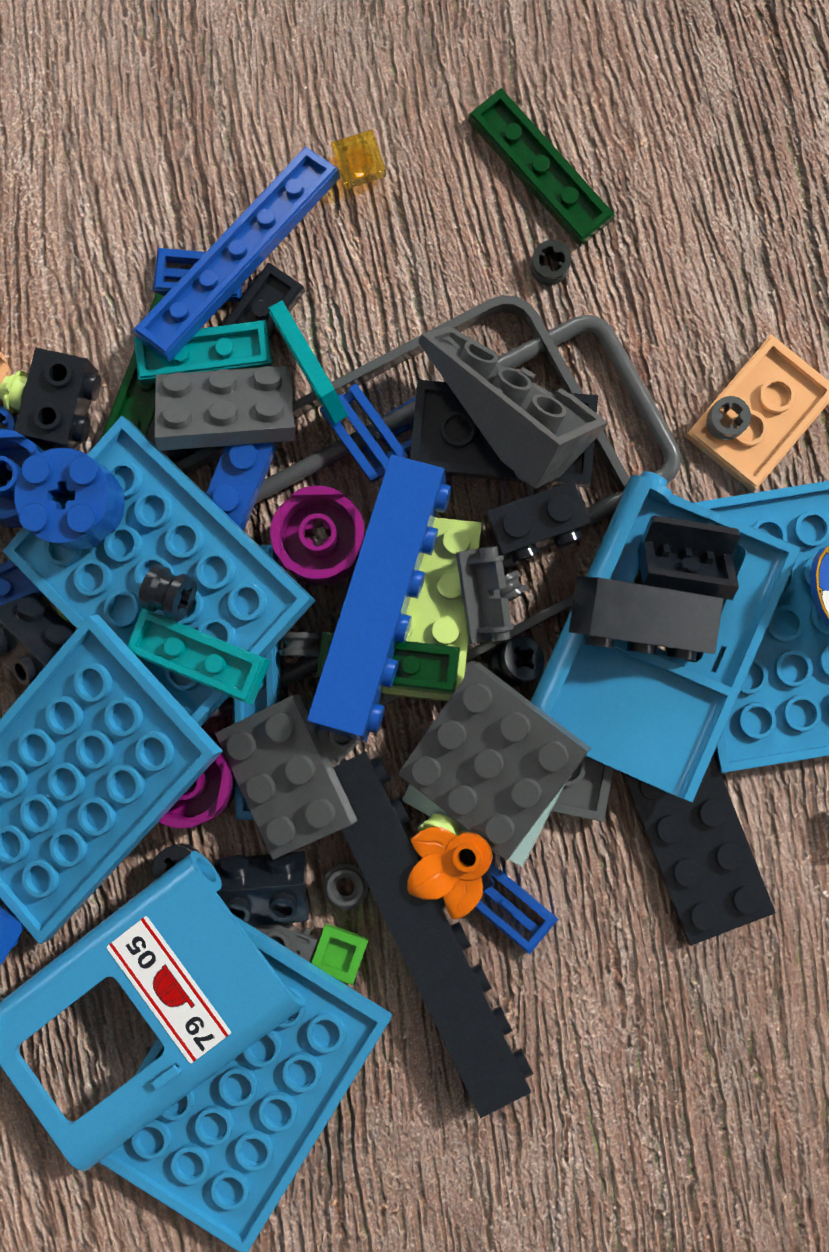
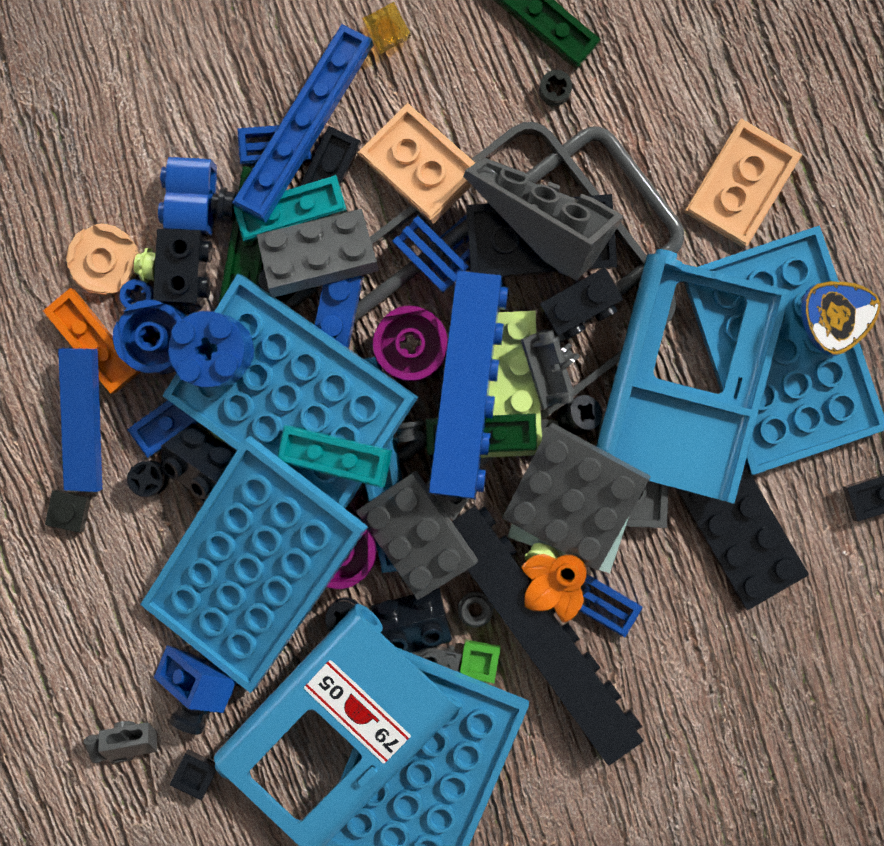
camera: 10 degrees left, 5 degrees up
(84, 315) = (188, 194): none -> blue brick
(121, 335) = (222, 205): none -> black plate
(167, 592) = (302, 410): black wheel -> none
(308, 362) = (376, 205): teal tile -> none
(368, 323) = (418, 163): none -> light nougat tile
(645, 617) = (677, 367): black brick -> none
(689, 557) = (703, 313): black bracket -> none
(742, 419) = (729, 193): dark grey bush -> none

